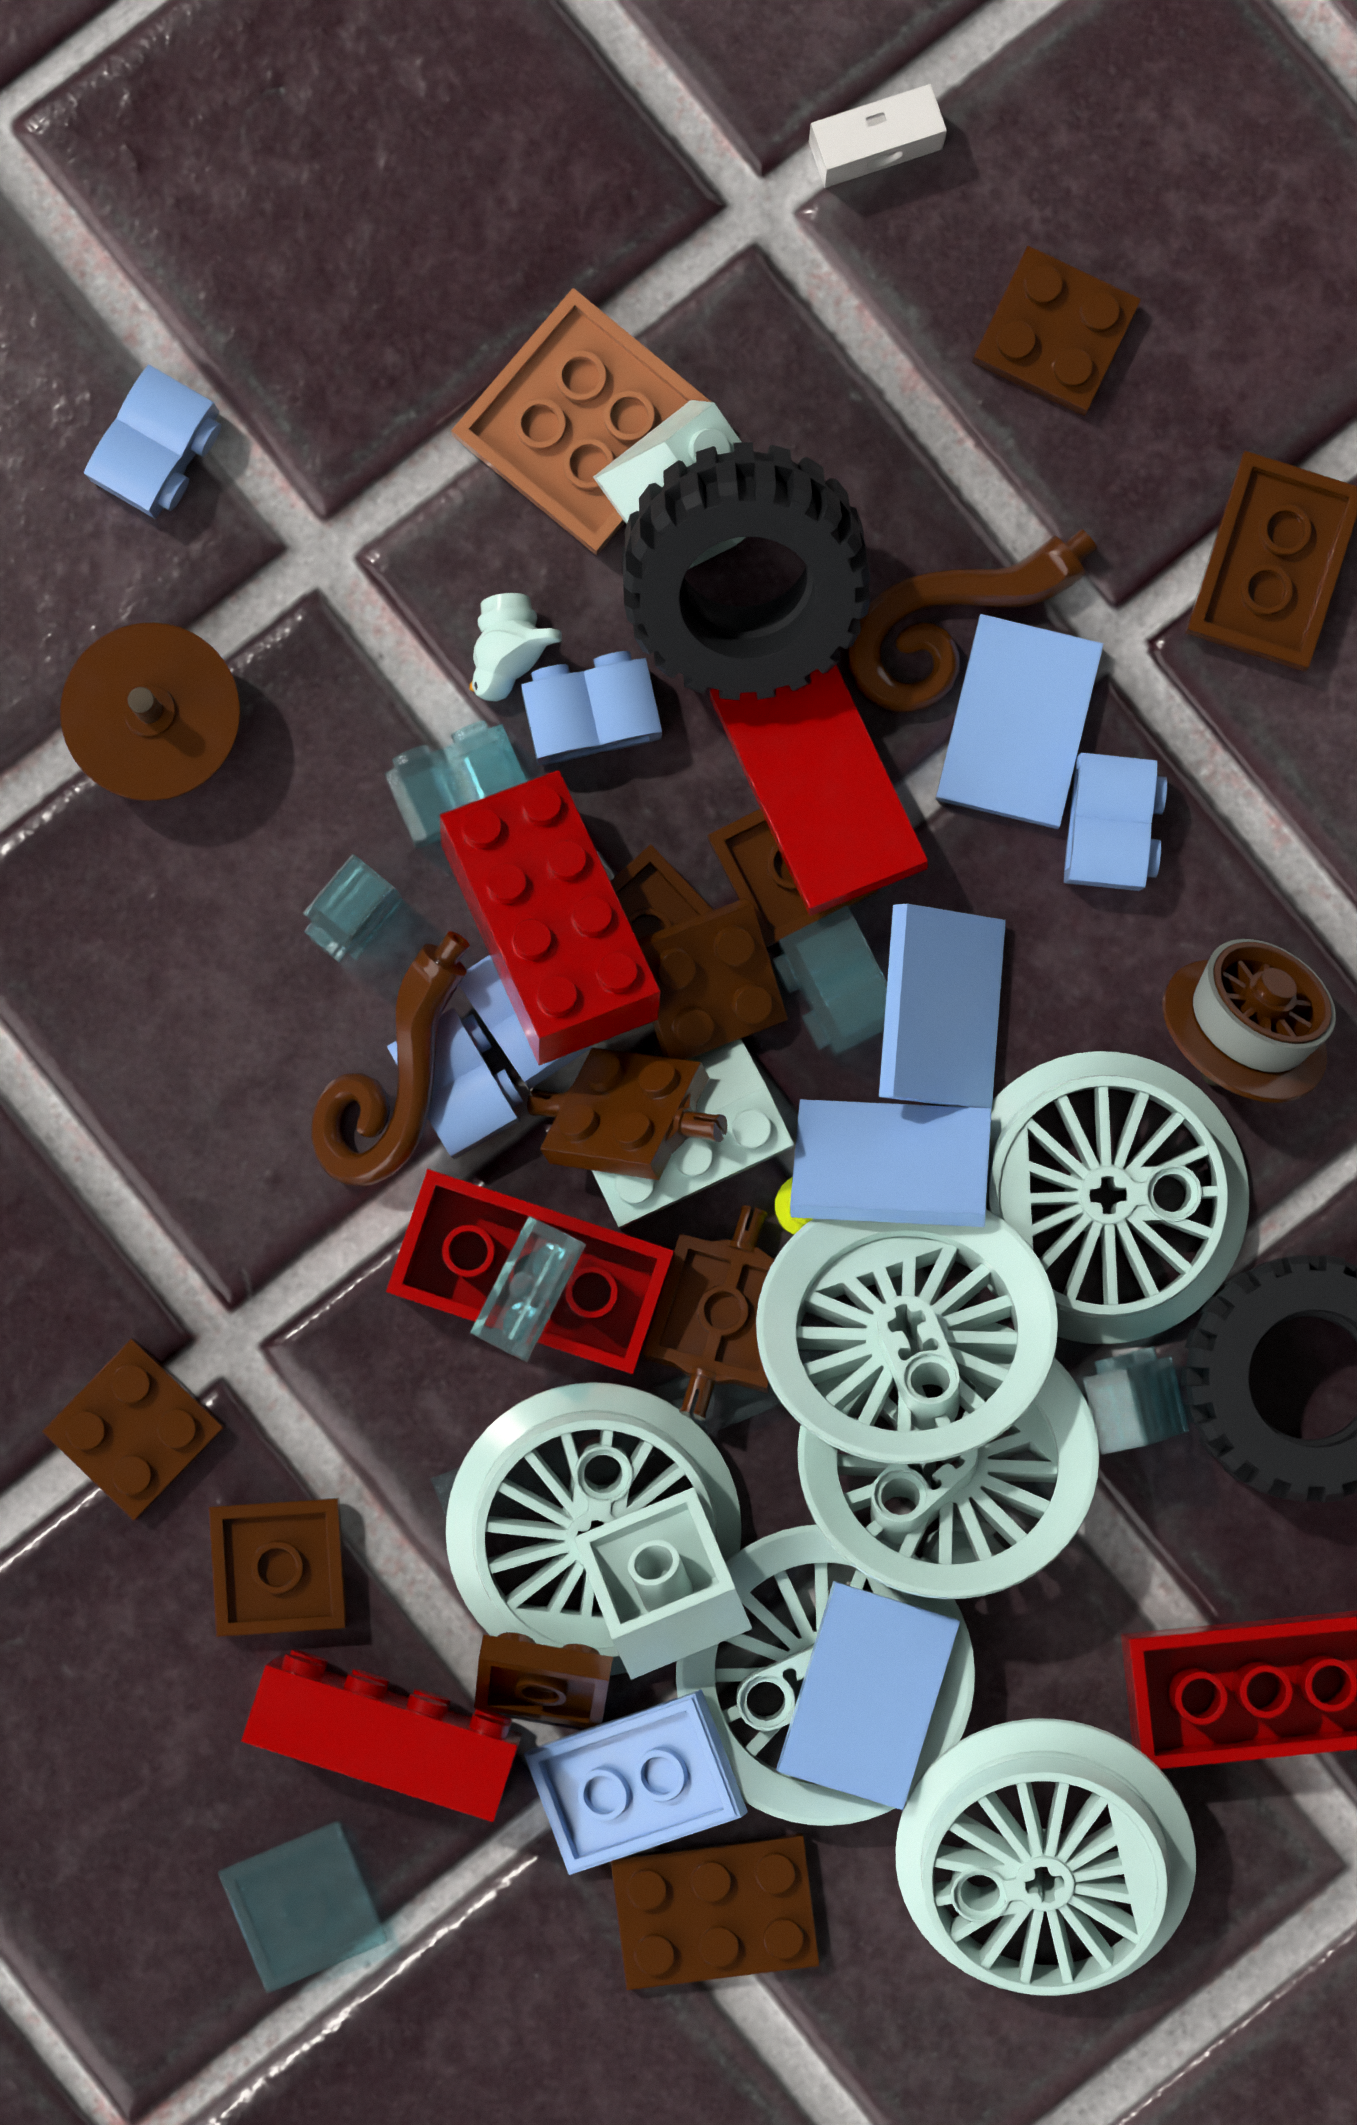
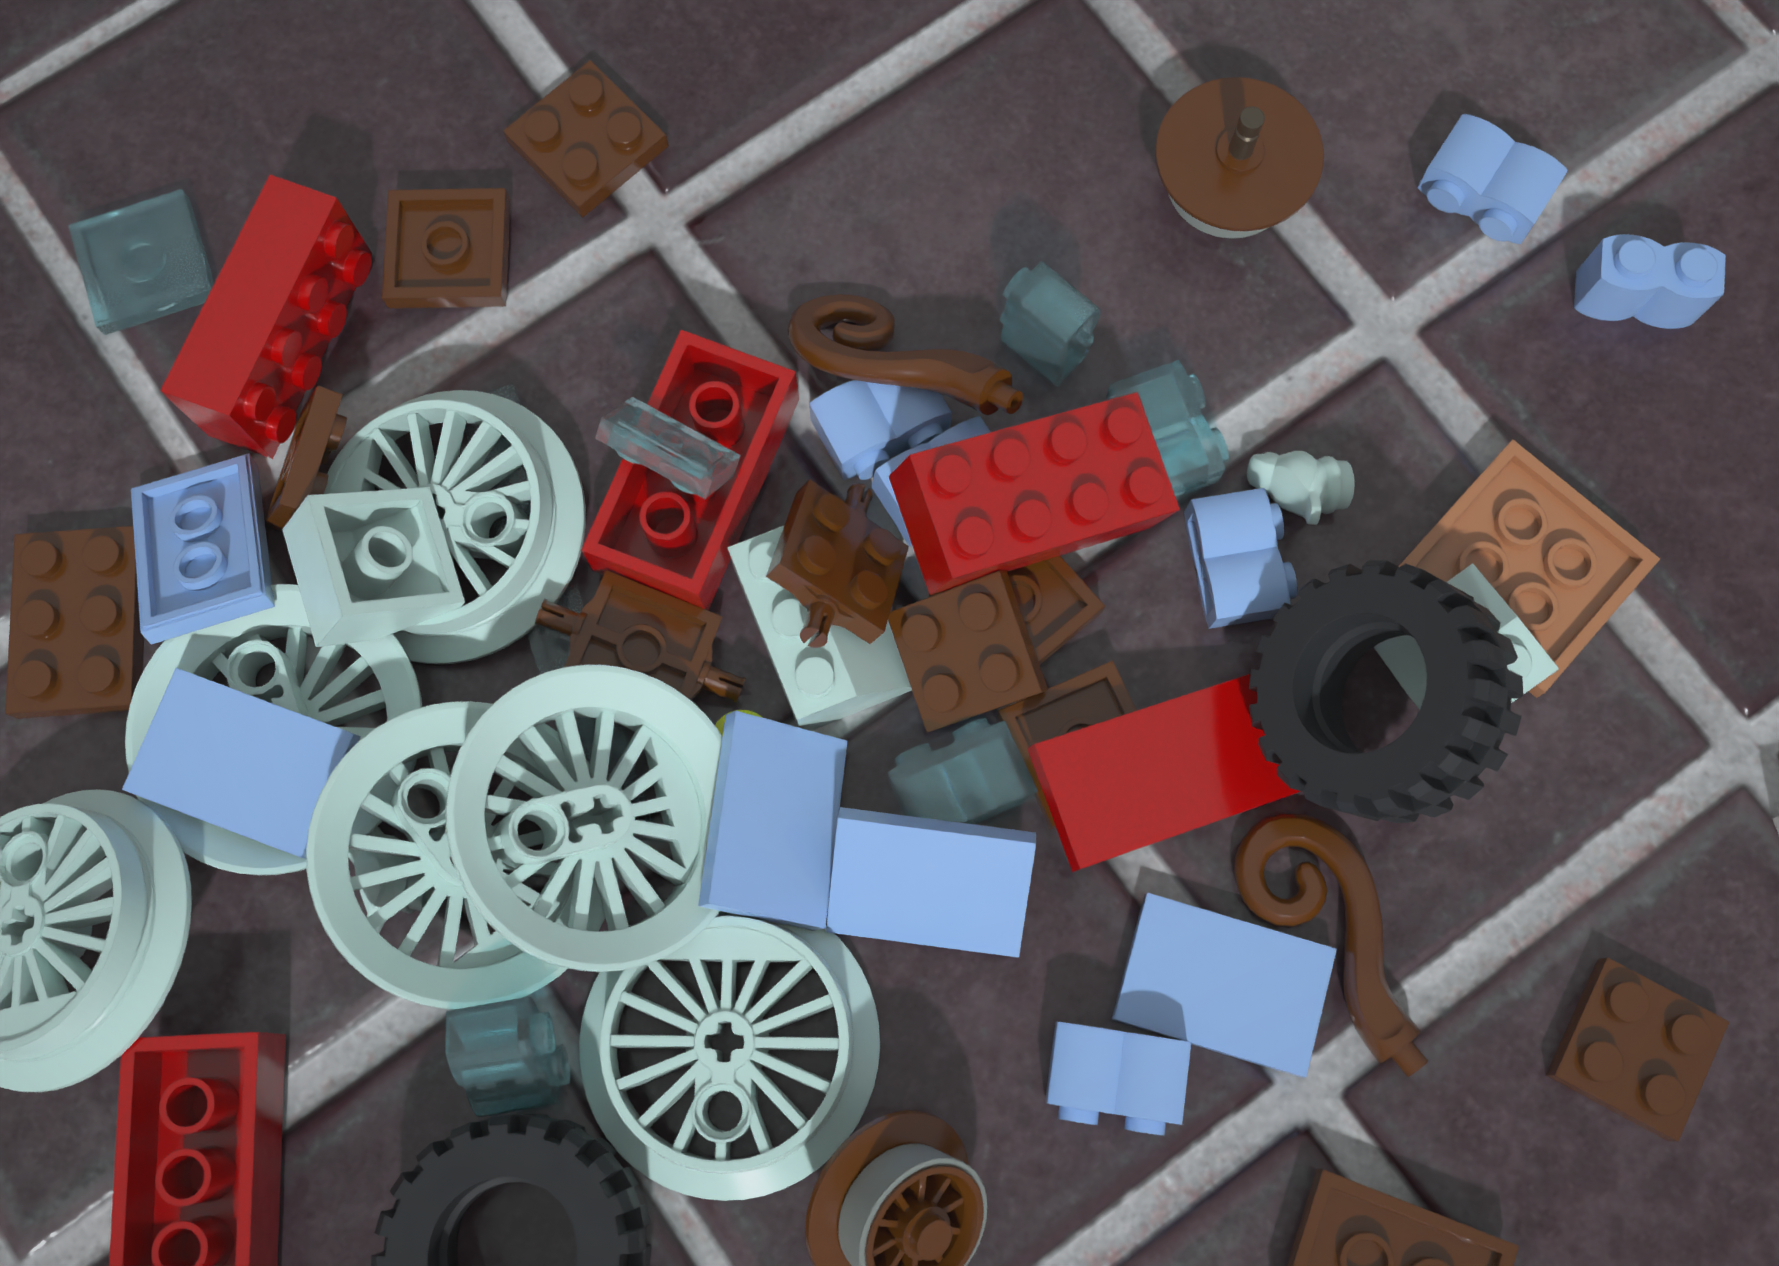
camera: 95 degrees right, 10 degrees down
(264, 295) = (1649, 281): none -> light blue brick

